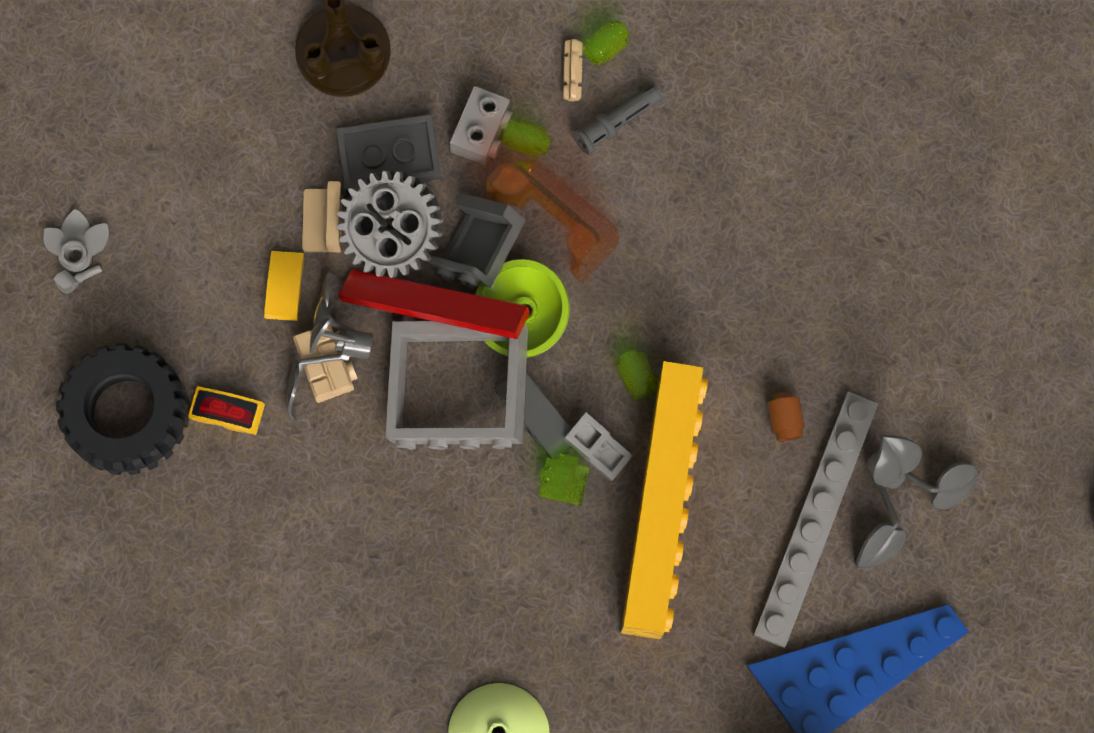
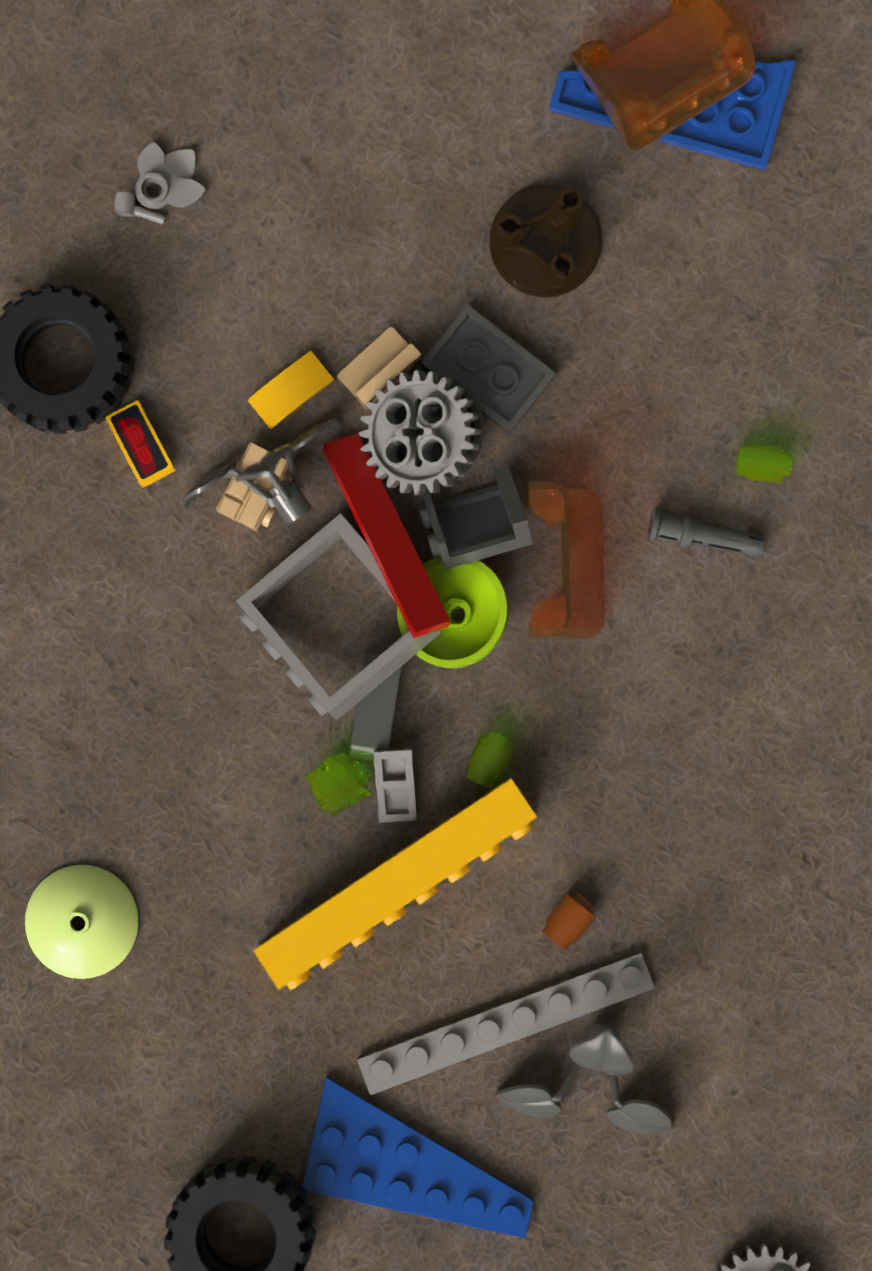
camera: 55 degrees right, 10 degrees up
(480, 126) = (586, 425): light grey brick -> none
(527, 137) = (612, 474): clear neon green brick -> none
(572, 70) = (712, 456): tan axle -> none

